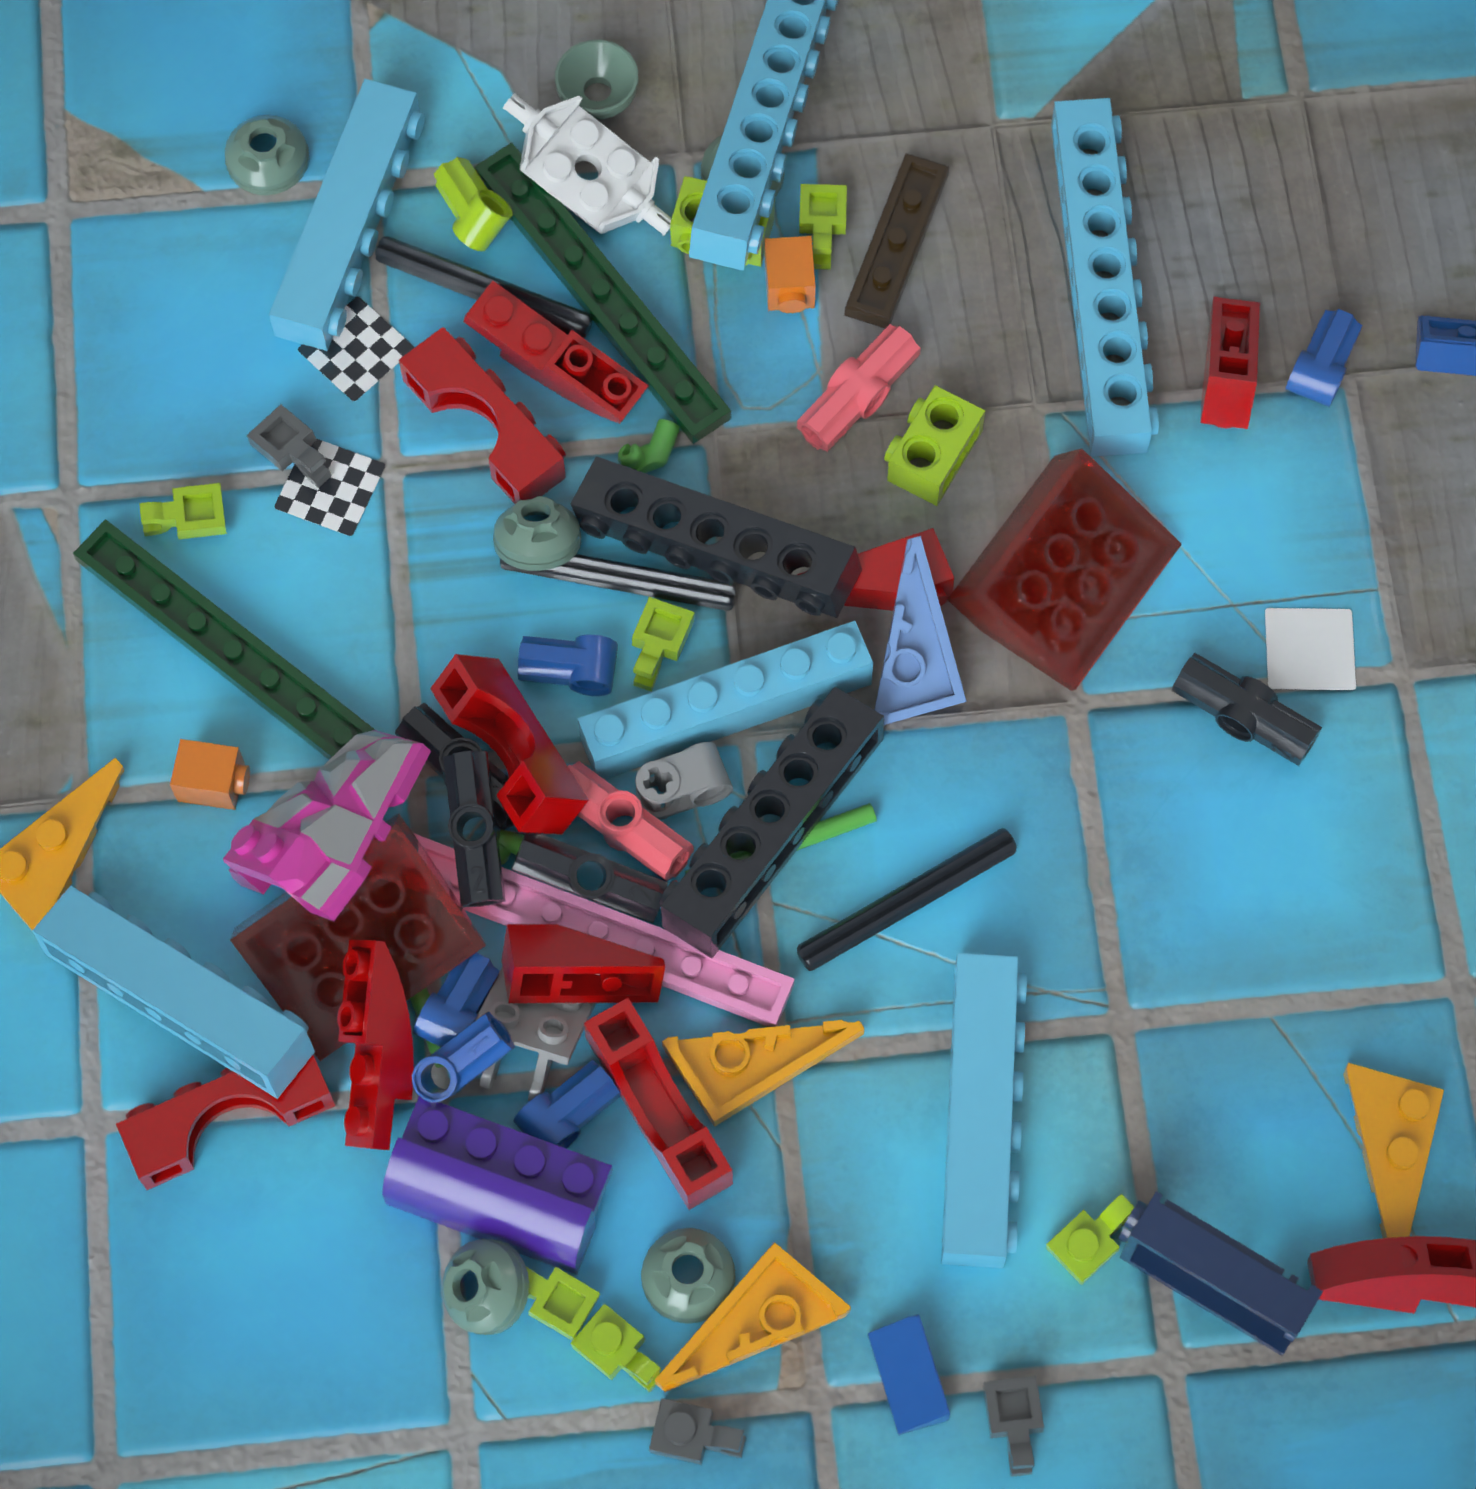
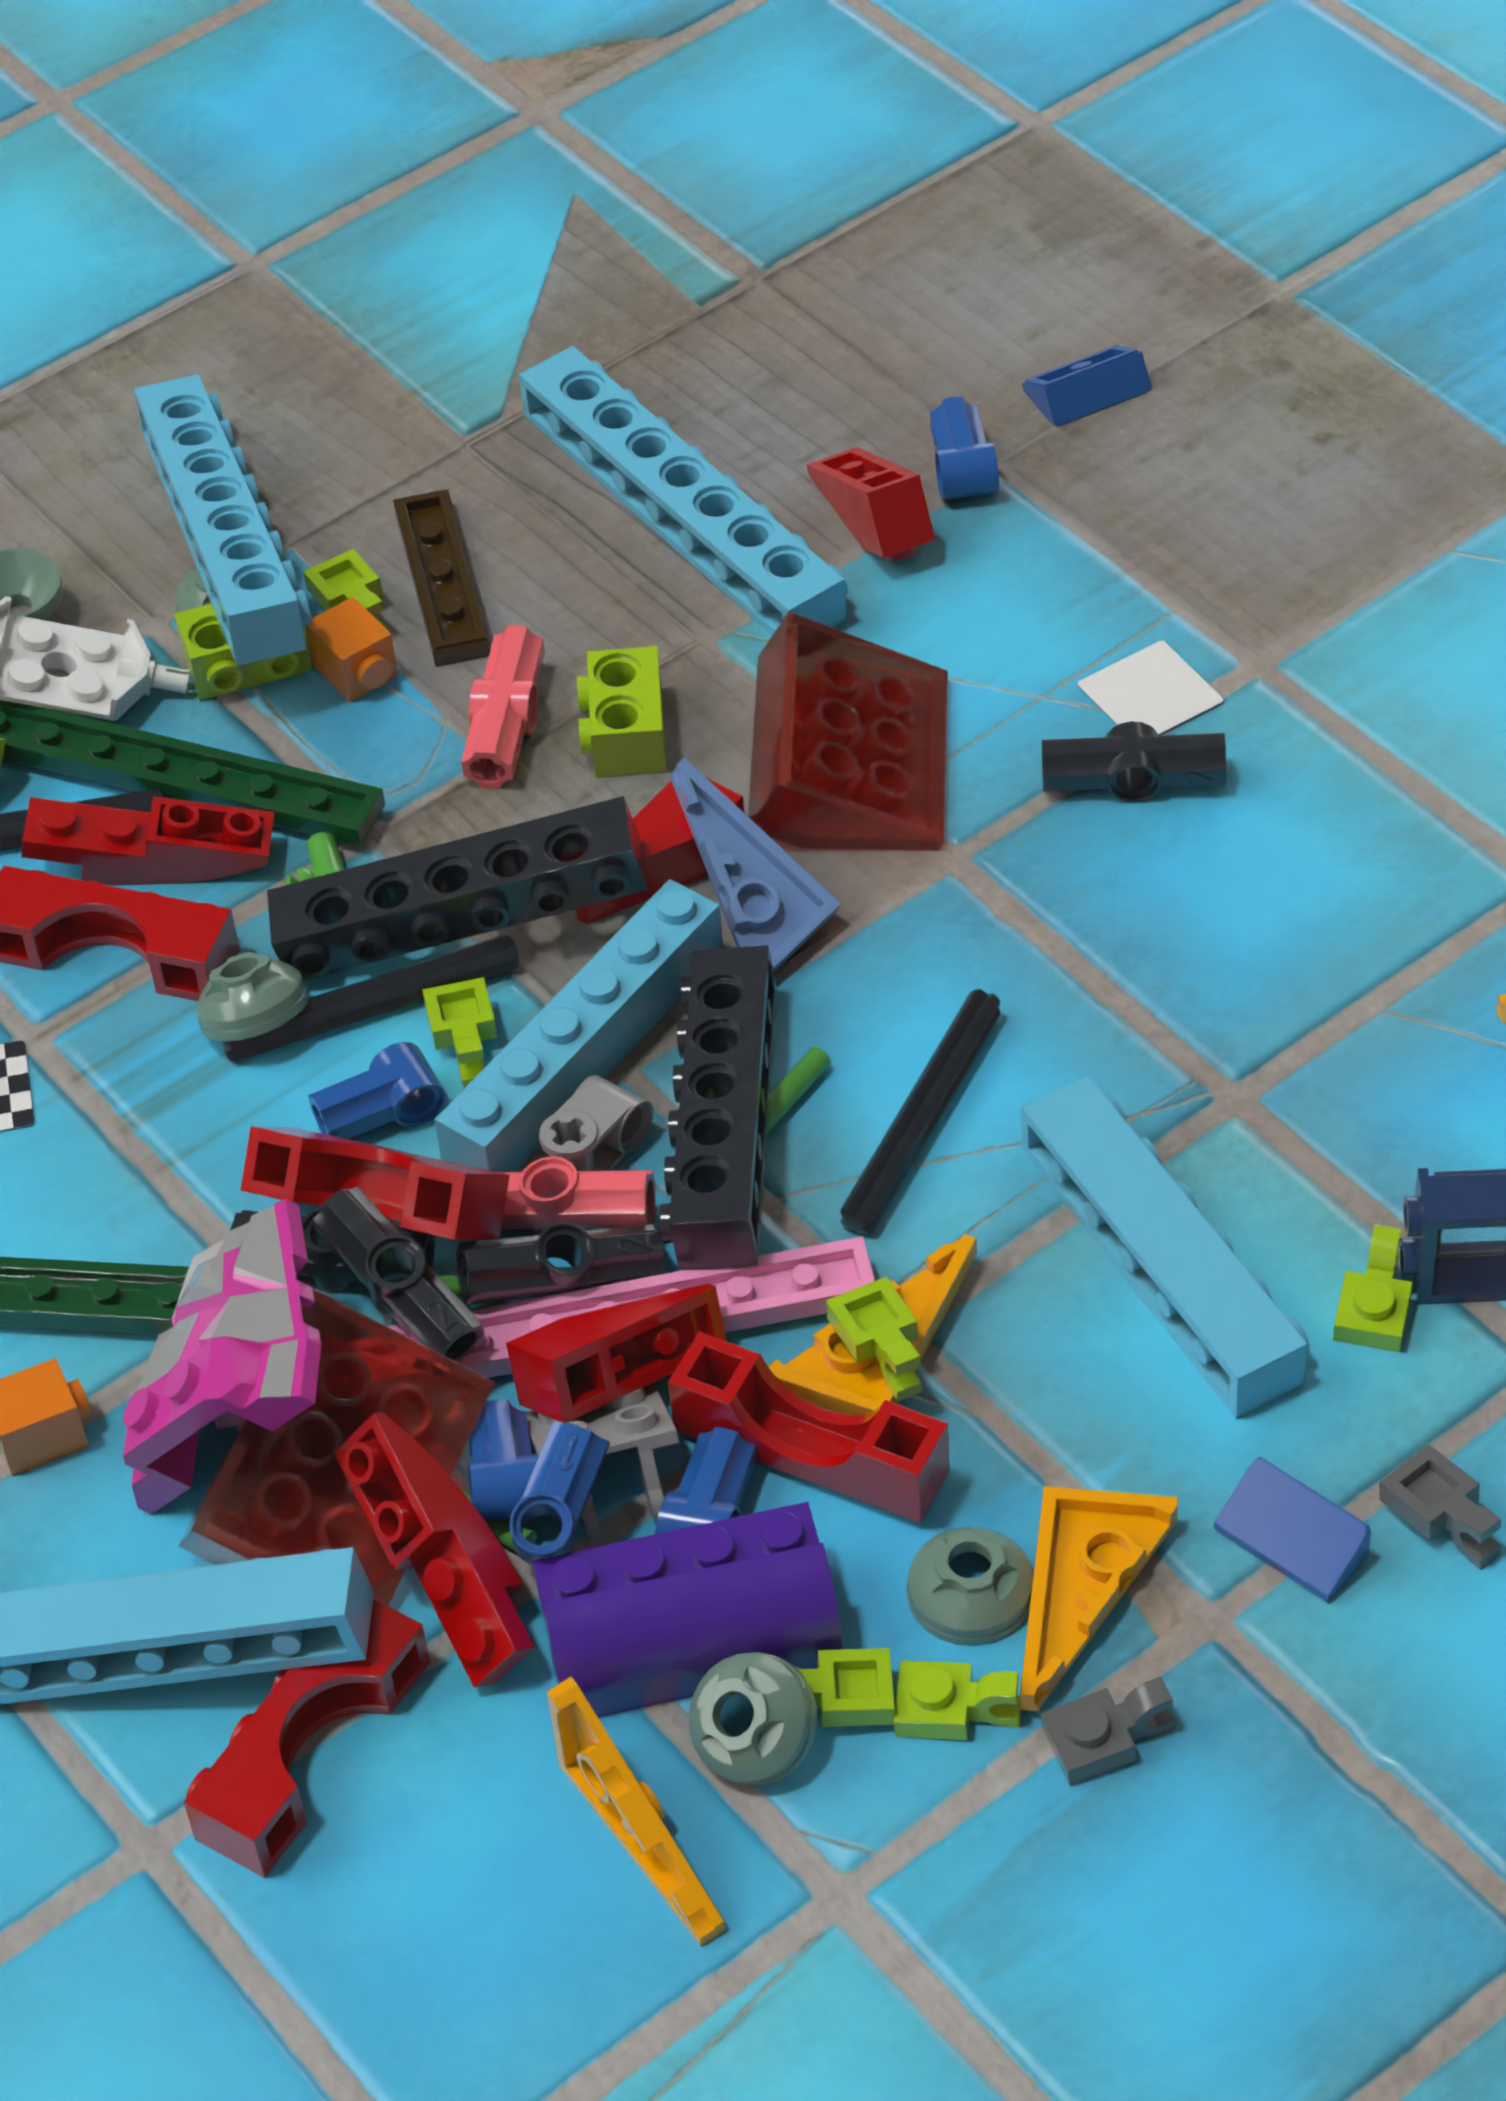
camera: 30 degrees left, 20 degrees down
(373, 1303) = (627, 1808): none -> light orange wing
(746, 1060) = (879, 1324): none -> lime plate

